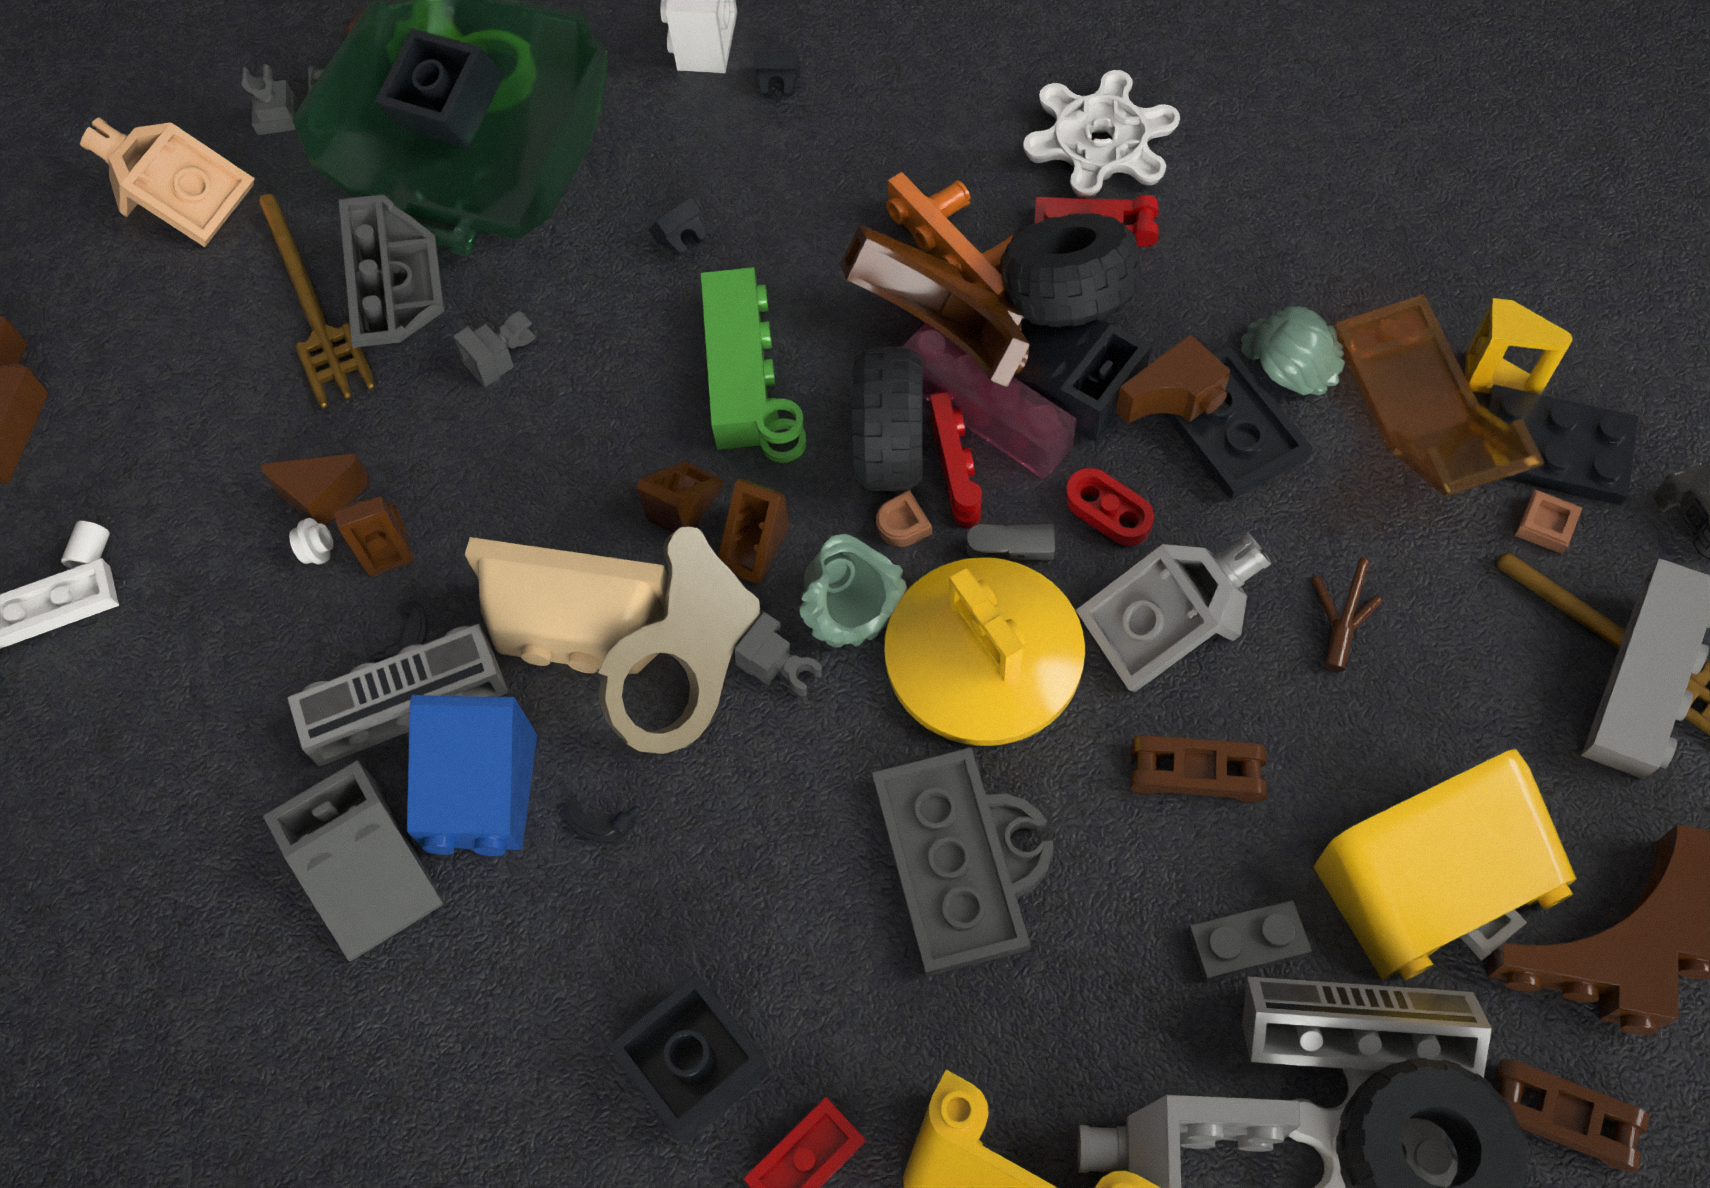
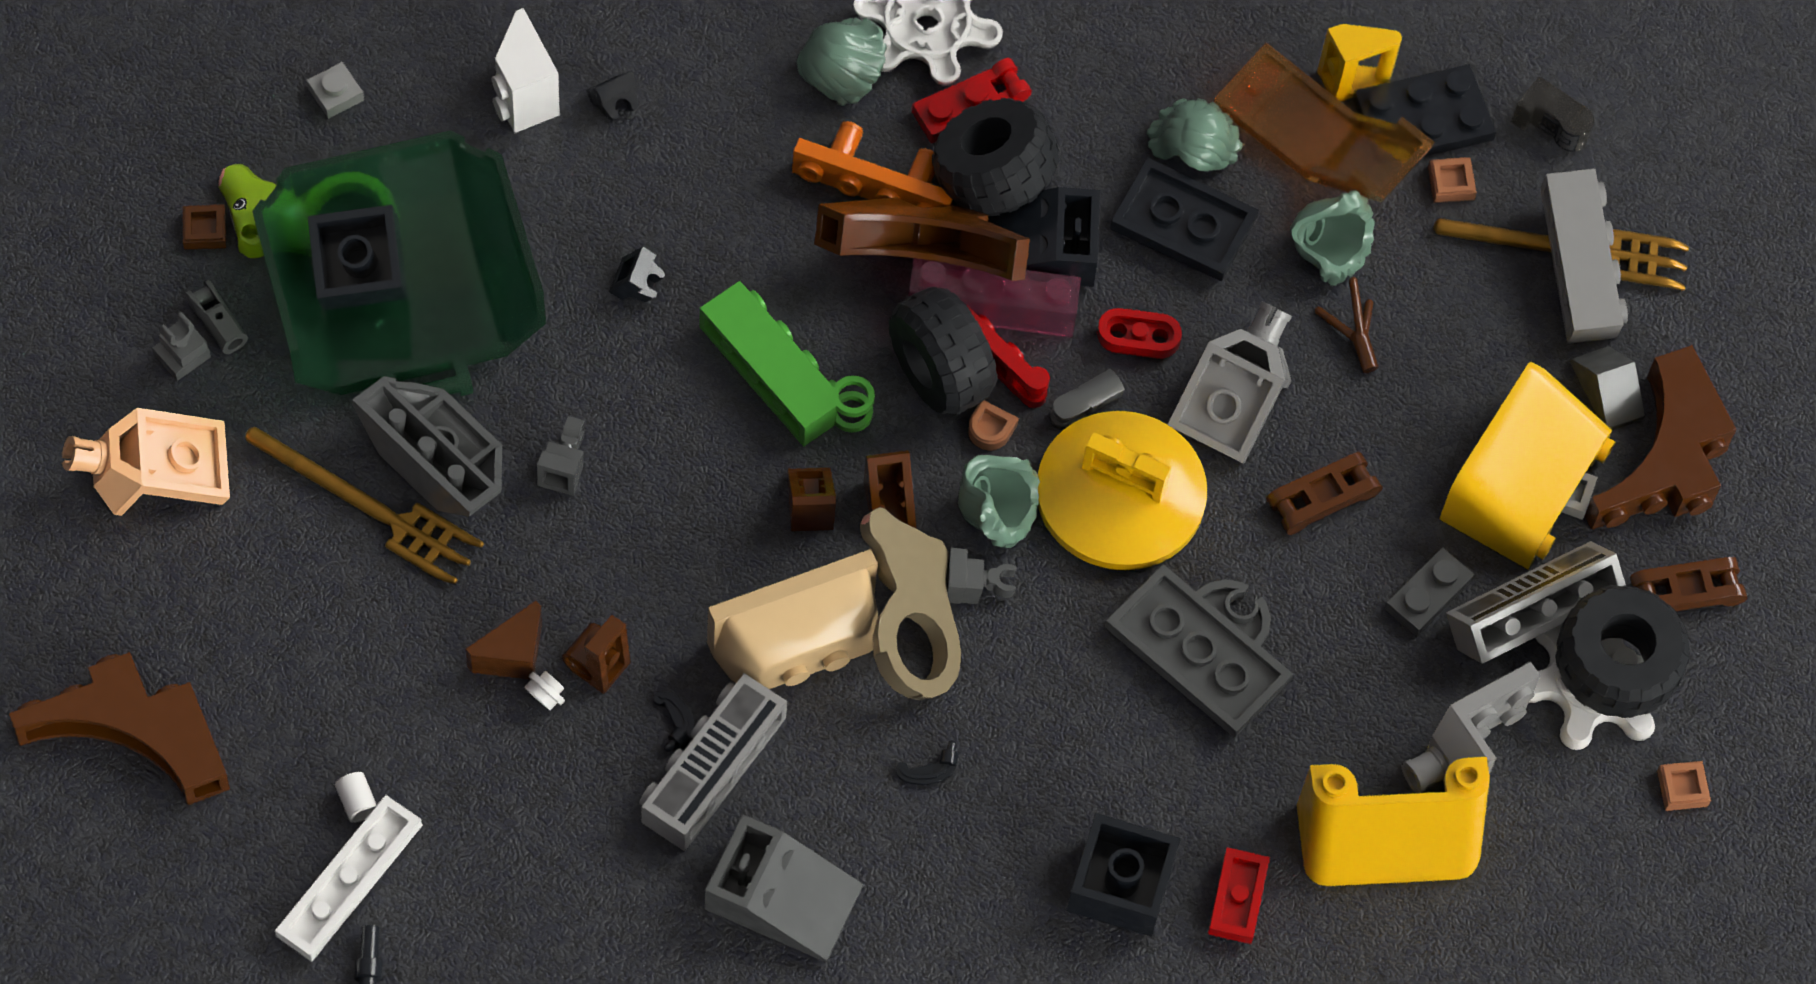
camera: 45 degrees left, 0 degrees up
(469, 773) = (822, 782): blue slope -> none
(996, 127) = (843, 59): none -> sand green hair
(1178, 382) = (1137, 210): reddish brown arch -> none
(1378, 509) = (1335, 235): none -> sand green hair
(1605, 829) = (1610, 386): none -> dark grey slope

